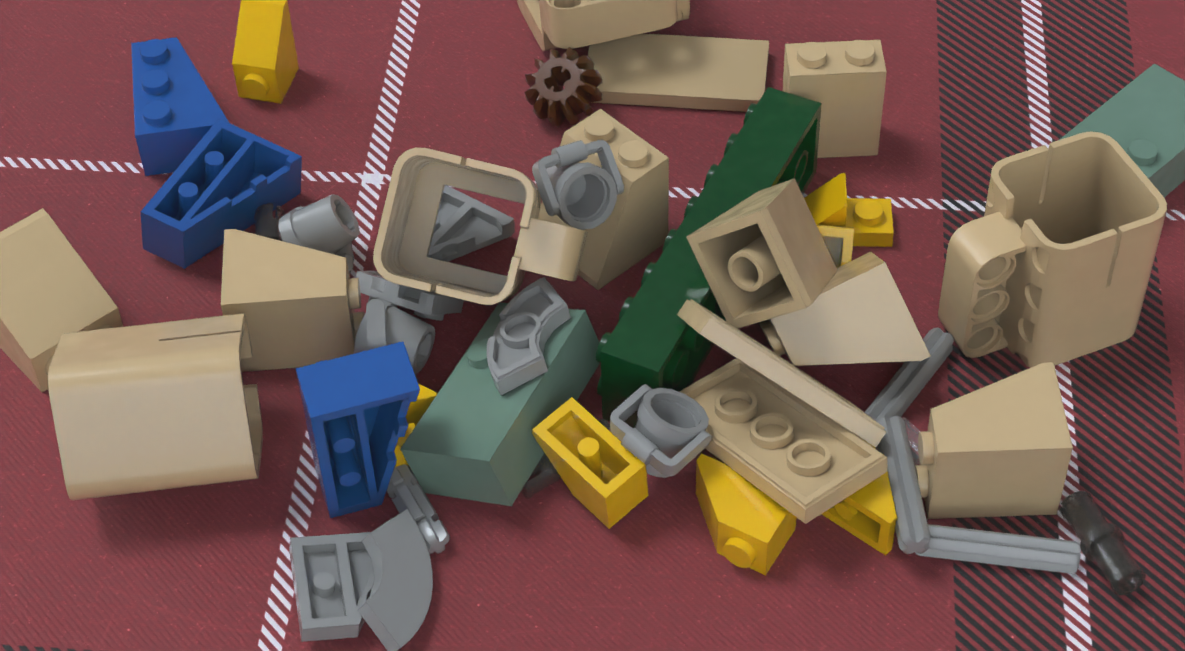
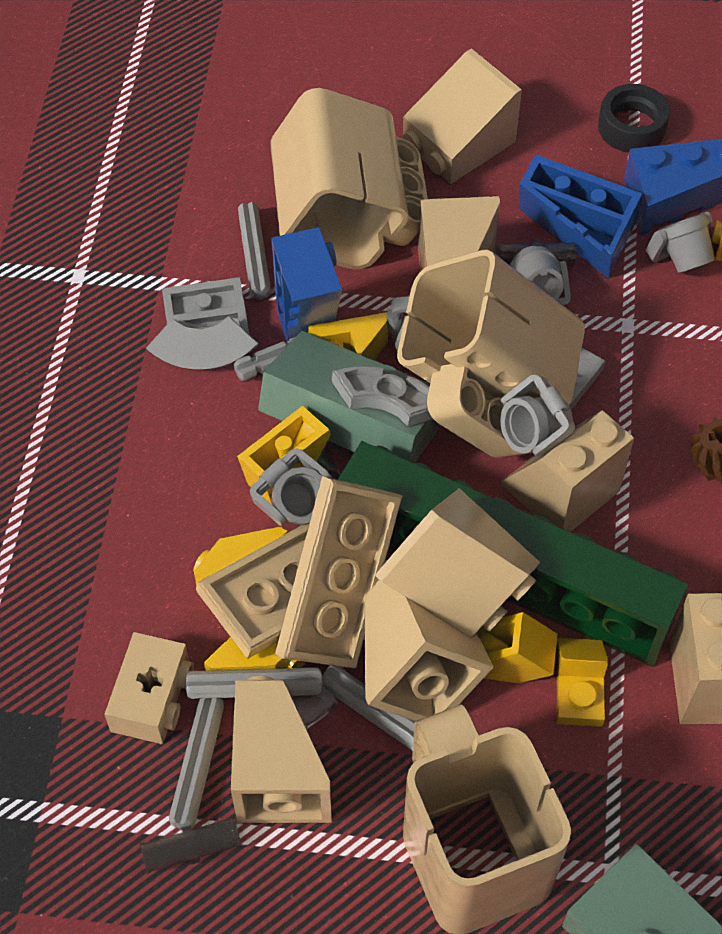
camera: 90 degrees right, 10 degrees up
(61, 176) = (636, 98): none -> black tyre
(223, 541) = (254, 251): none -> light grey axle
(273, 105) = (685, 242): none -> light grey piece
(918, 596) = (147, 664): none -> tan brick

